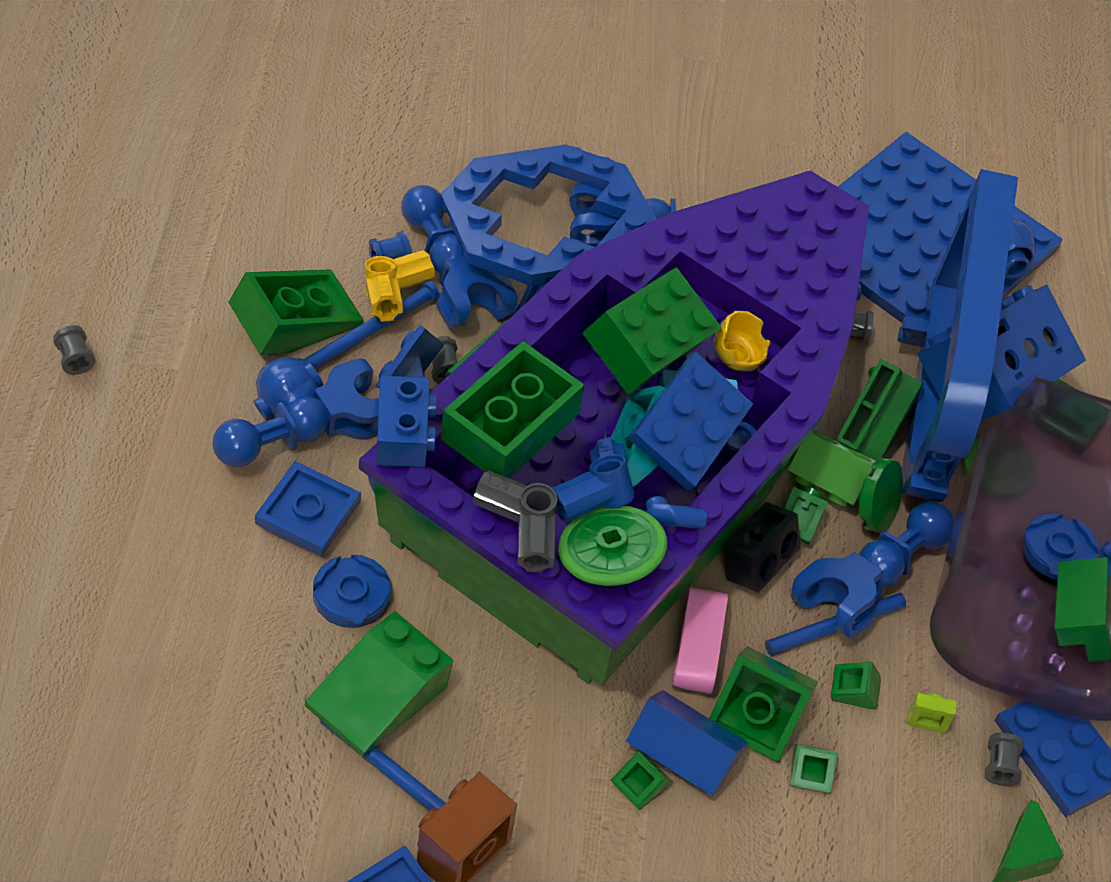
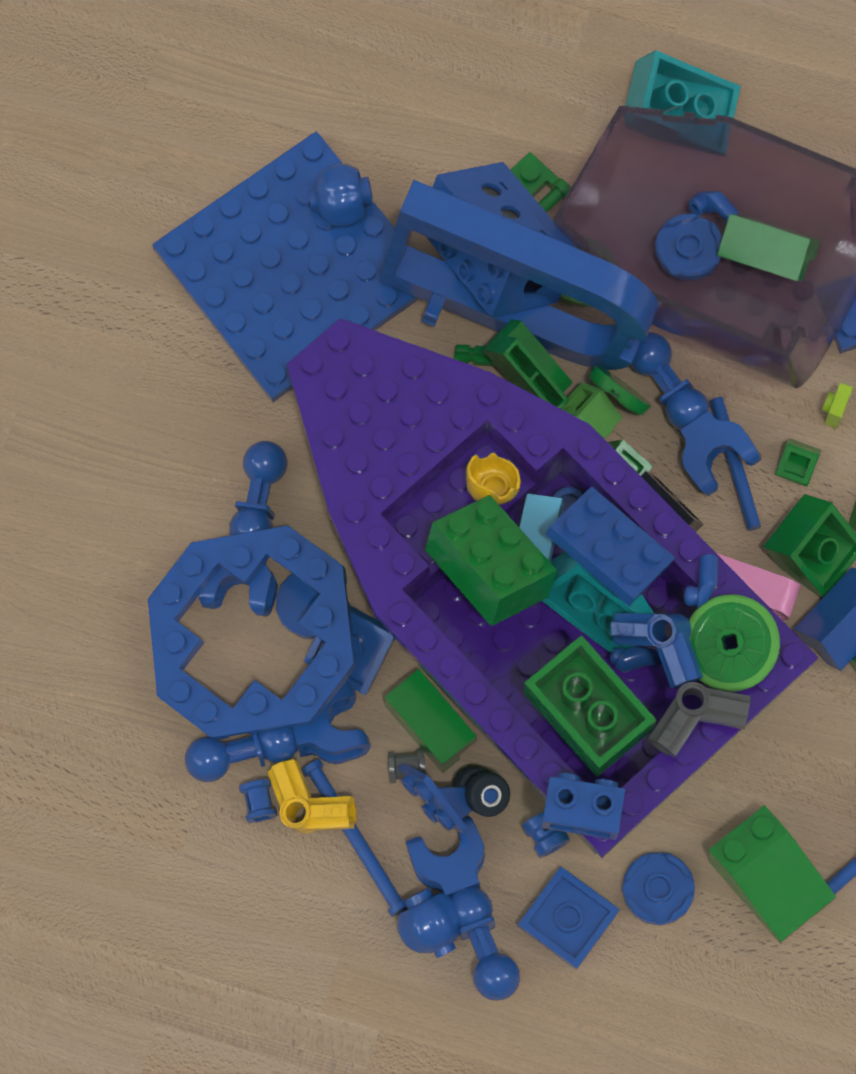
camera: 70 degrees left, 20 degrees up
(292, 309) = (327, 905): green slope -> none

